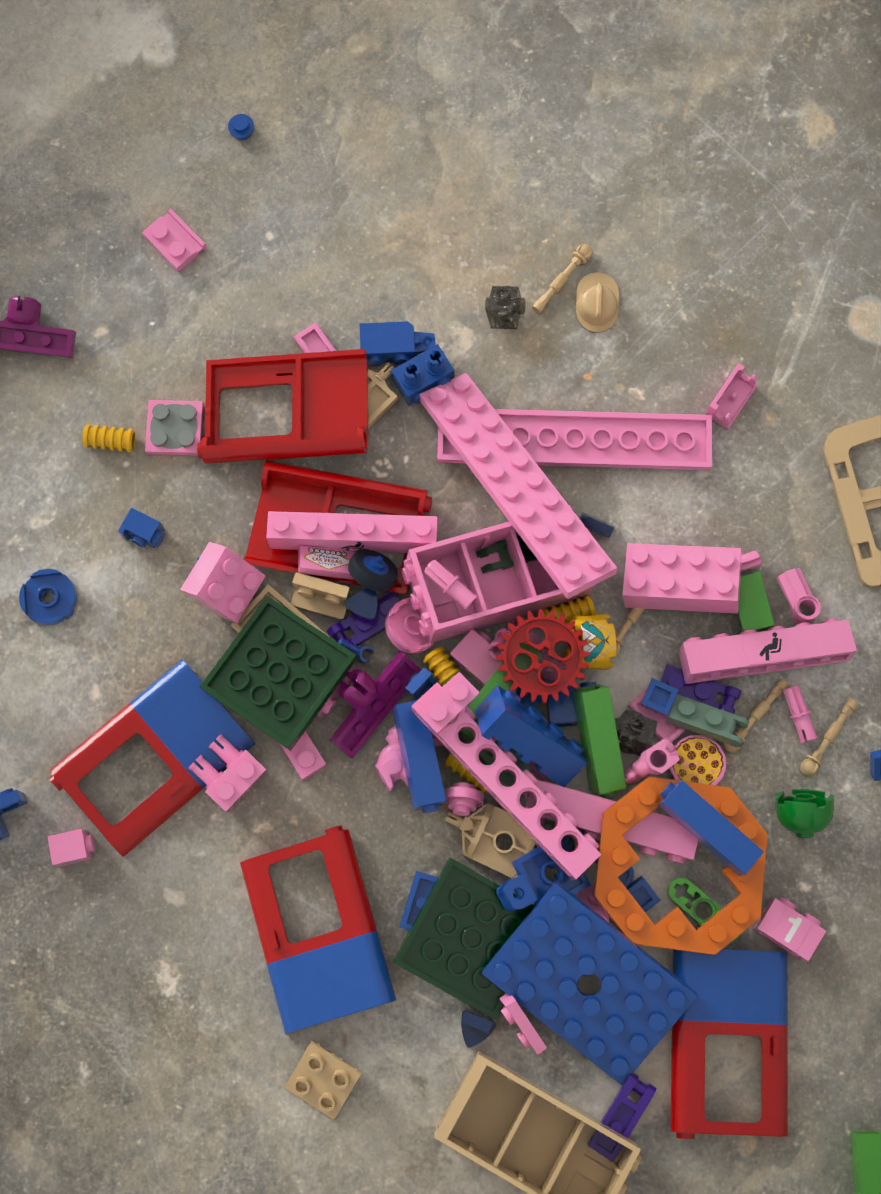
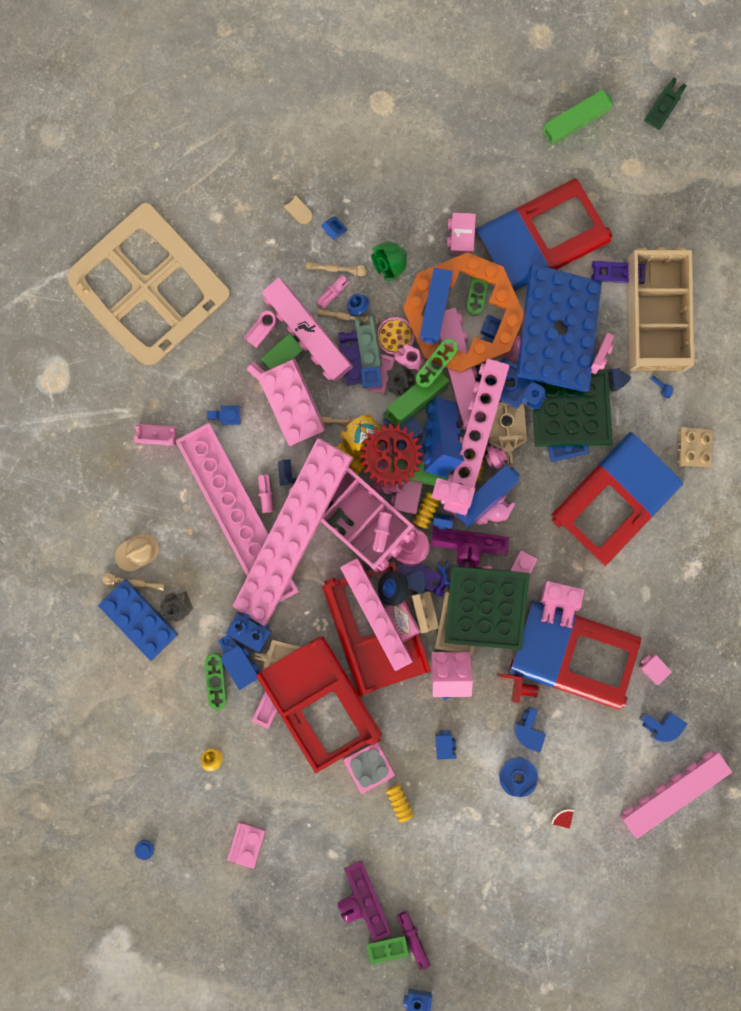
camera: 125 degrees left, 10 degrees up
(91, 636) = (525, 734): none -> blue brick
(154, 661) = (519, 688): none -> red bracket
(298, 253) = (211, 759): none -> yellow hat
(366, 306) = (222, 695): none -> bright green beam
(422, 1087) = (667, 389): none -> blue hand
(514, 258) = (138, 619): none -> blue plate
(582, 488) = (265, 493): none -> bright pink axle
(632, 808) = (441, 348): none -> bright green beam
(709, 497) = (228, 415): none -> blue plate
(766, 737) = (357, 304): none -> blue hat

